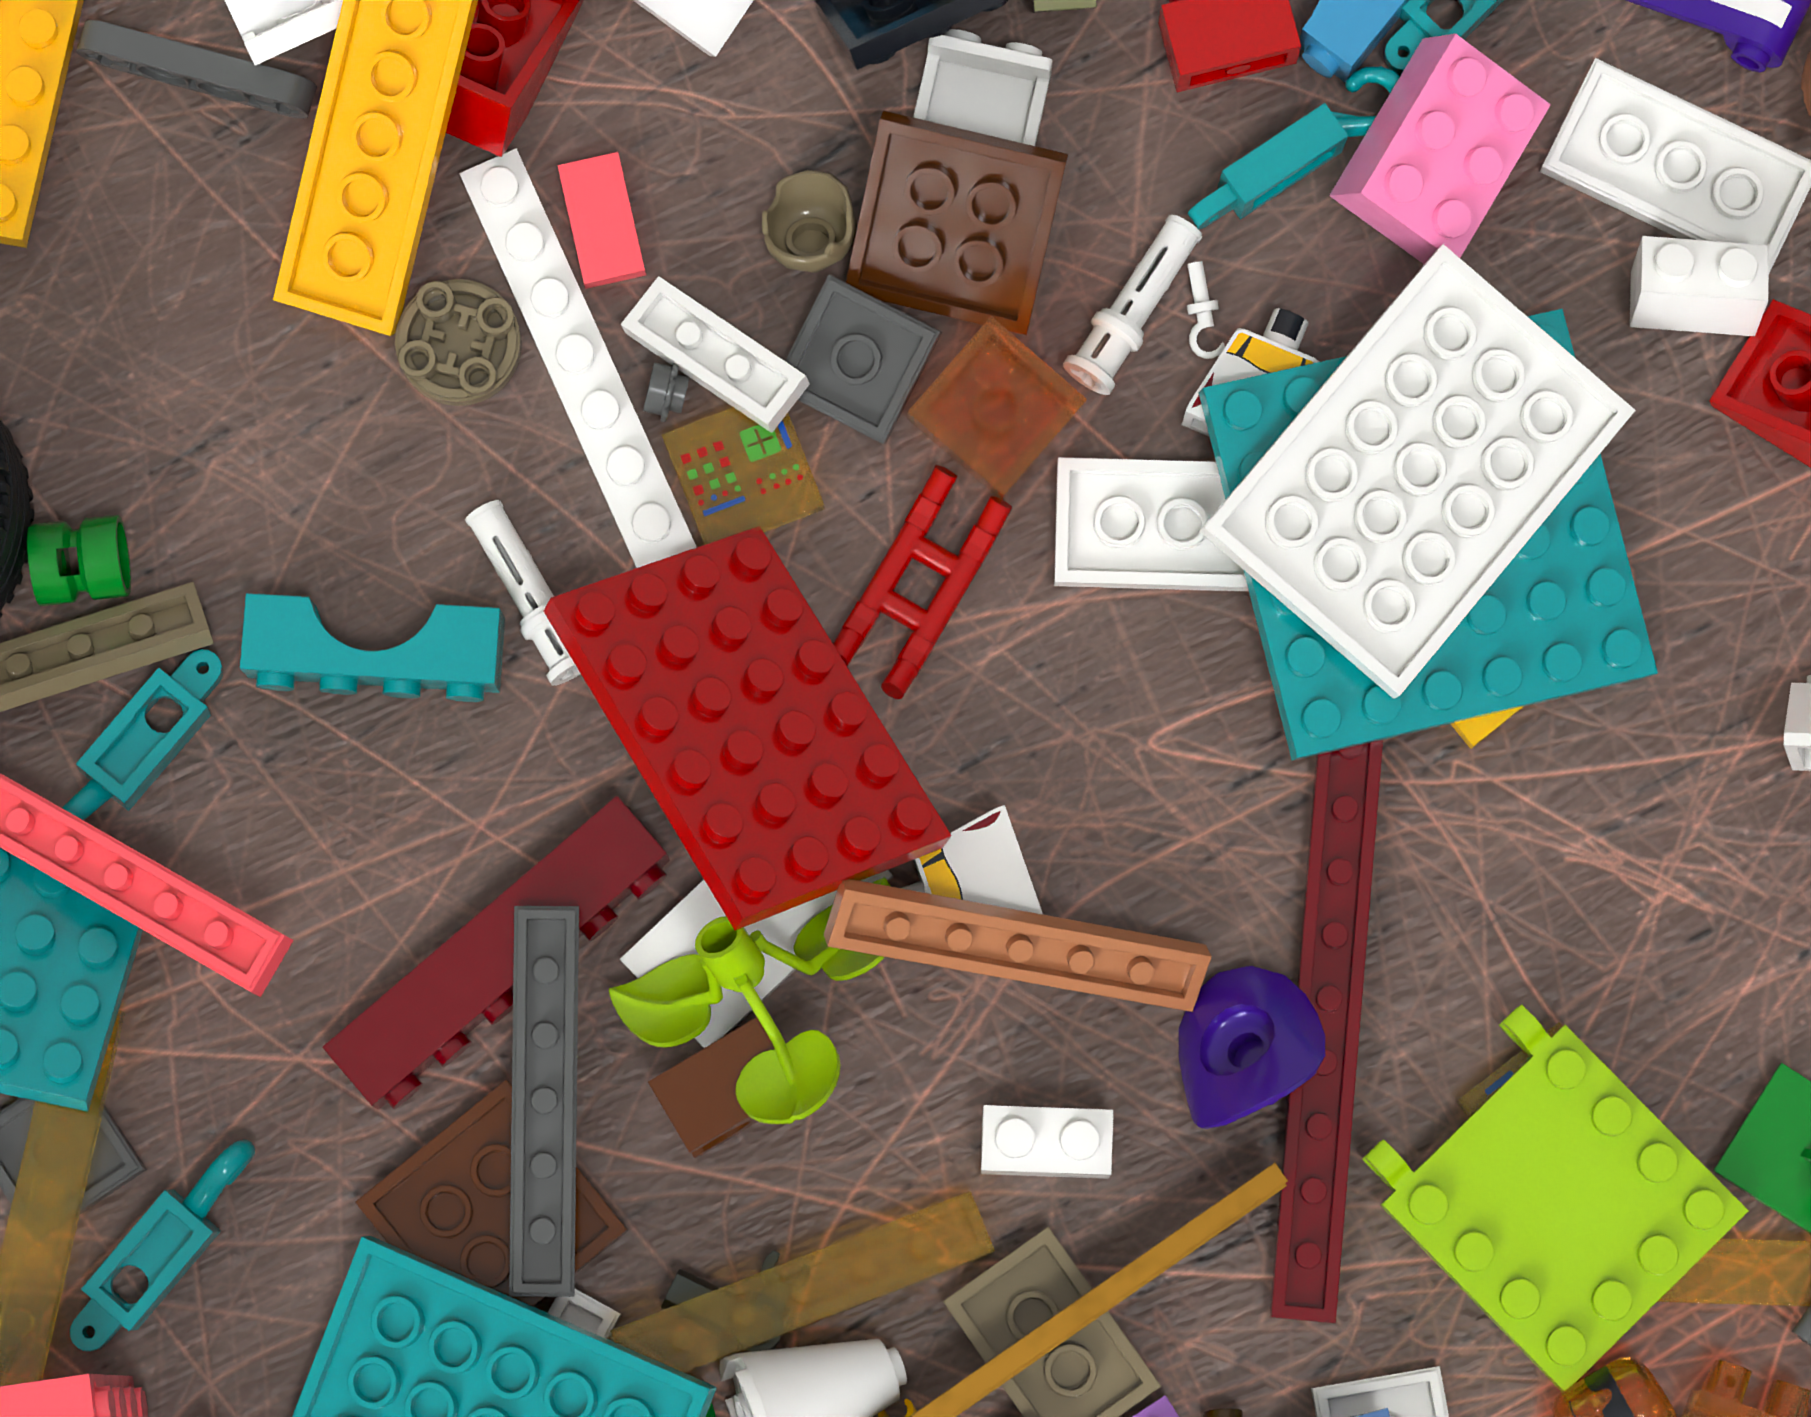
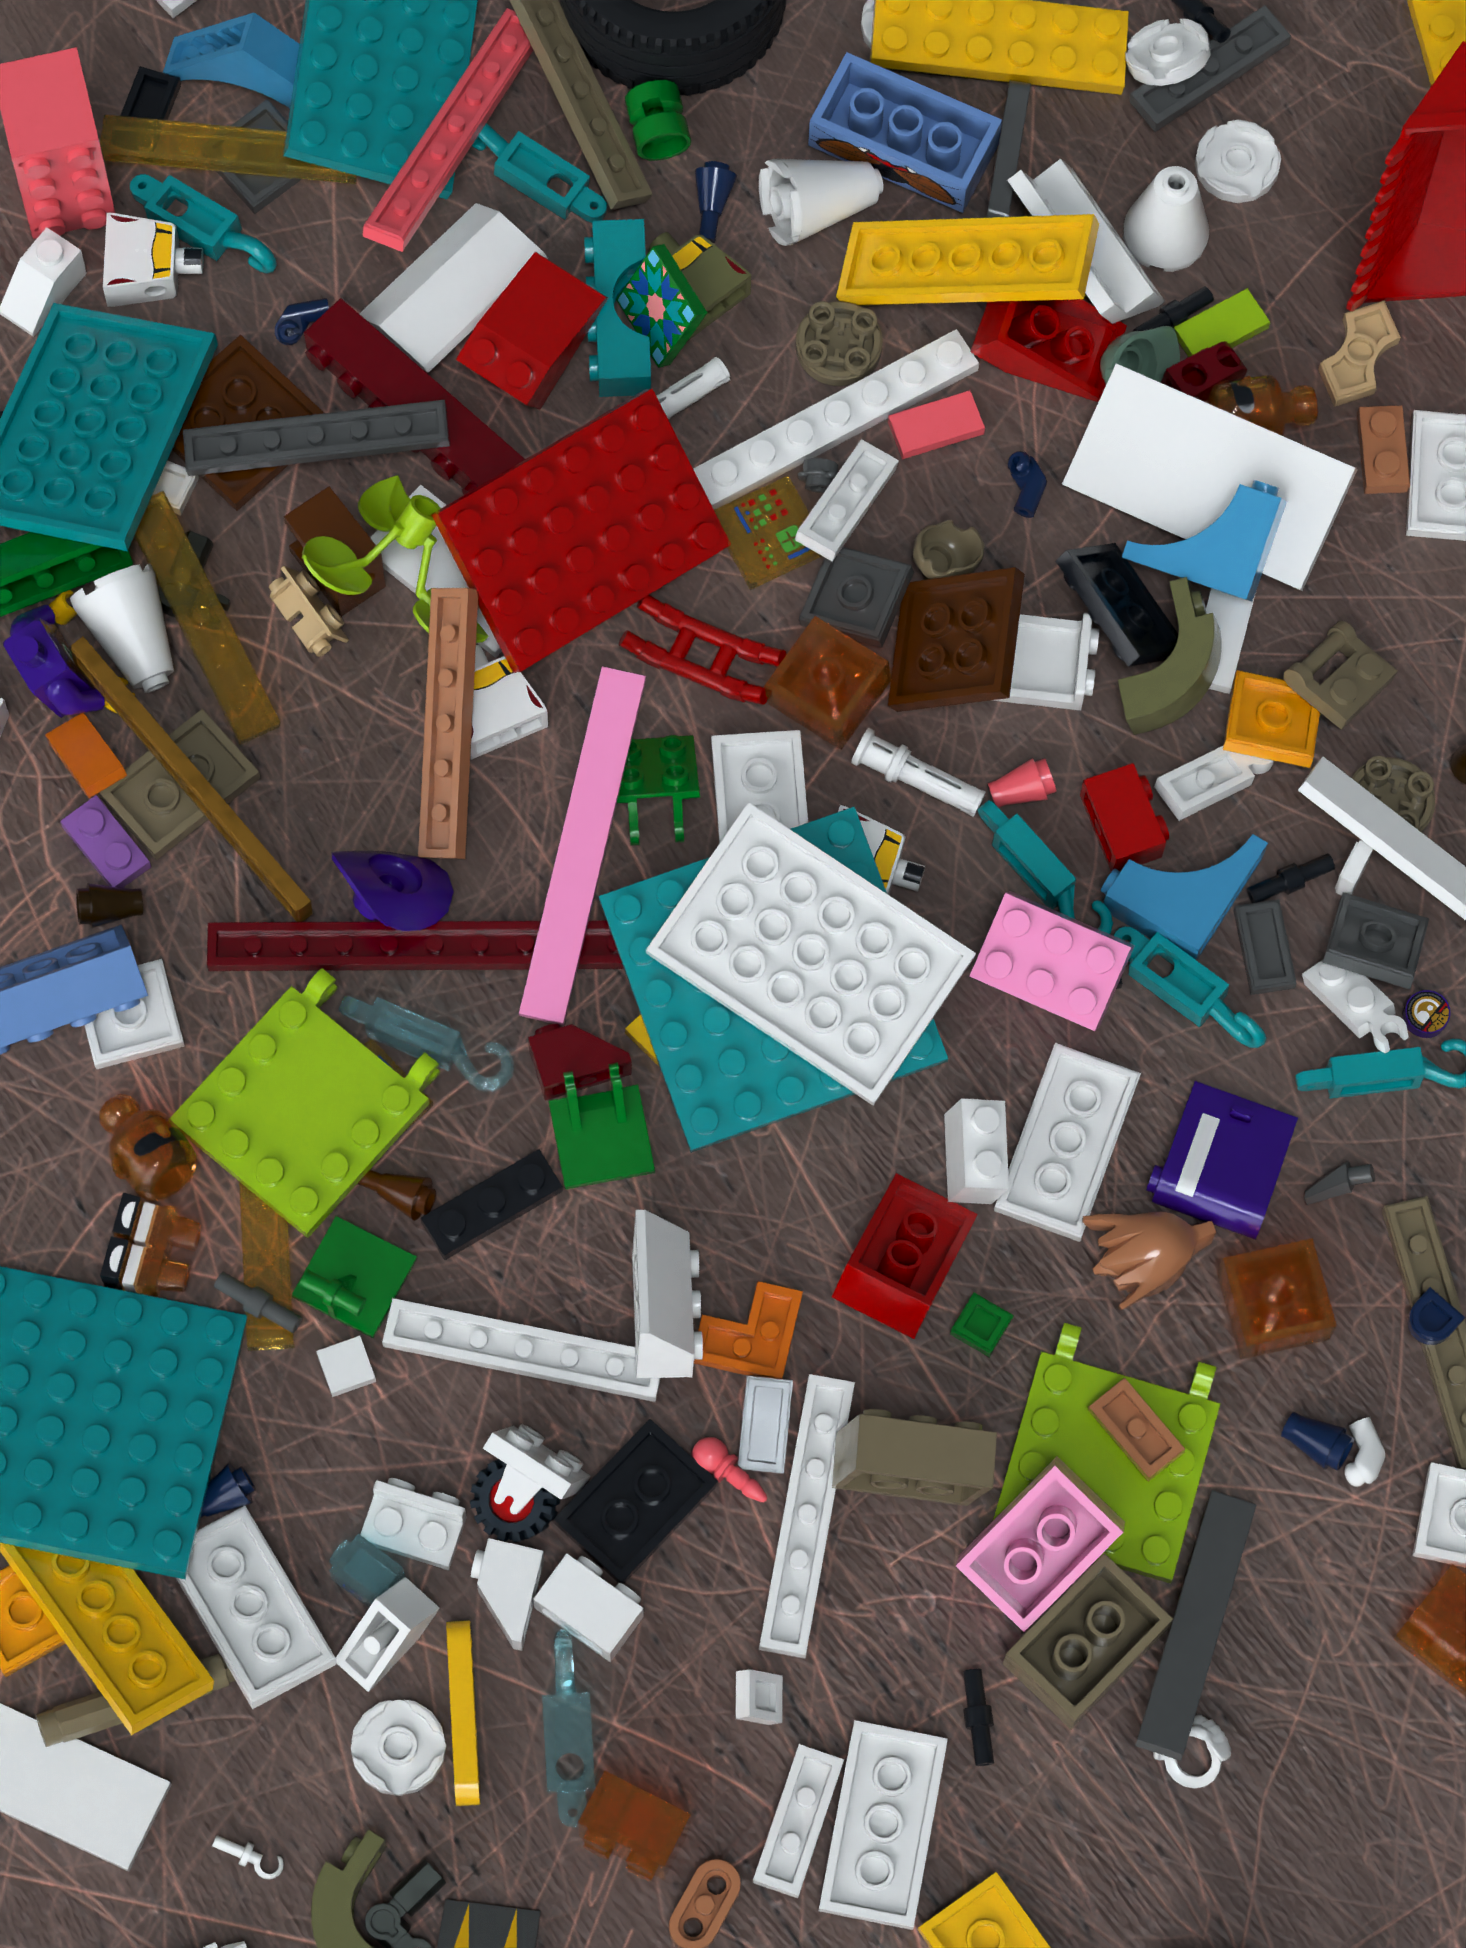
camera: 80 degrees right, 10 degrees down
(146, 206) = (905, 131): none -> medium blue brick
(200, 494) = (713, 189): none -> dark blue cone
(214, 1335) = (144, 260): none -> white torso
(232, 347) = (814, 194): none -> white cone
(308, 871) = (451, 286): none -> white slope
(330, 1118) = (297, 318): none -> dark blue arm
(342, 533) = (711, 273): none -> olive torso
(386, 581) = (662, 305): none -> tile
(408, 771) = (532, 331): none -> red slope
(704, 100) = (1029, 480): none -> dark blue arm
(776, 1147) = (320, 621): none -> tan hinge
(1046, 1141) = (317, 765): white brick -> none
(1101, 669) = (659, 770): none -> green plate
(1164, 162) = (1024, 784): none -> coral cone
(1202, 308) = (924, 822): white hand -> none
(1218, 771) = (582, 846): none -> bright pink tile
(1473, 1018) = (418, 1035): none -> clear light blue piece
(1518, 822) = (572, 1049): none -> dark red slope
(1624, 793) = (601, 1133): none -> green plate
(1687, 1072) = (407, 1193): none -> reddish brown cone
(1709, 954) = (491, 1204): none -> black plate

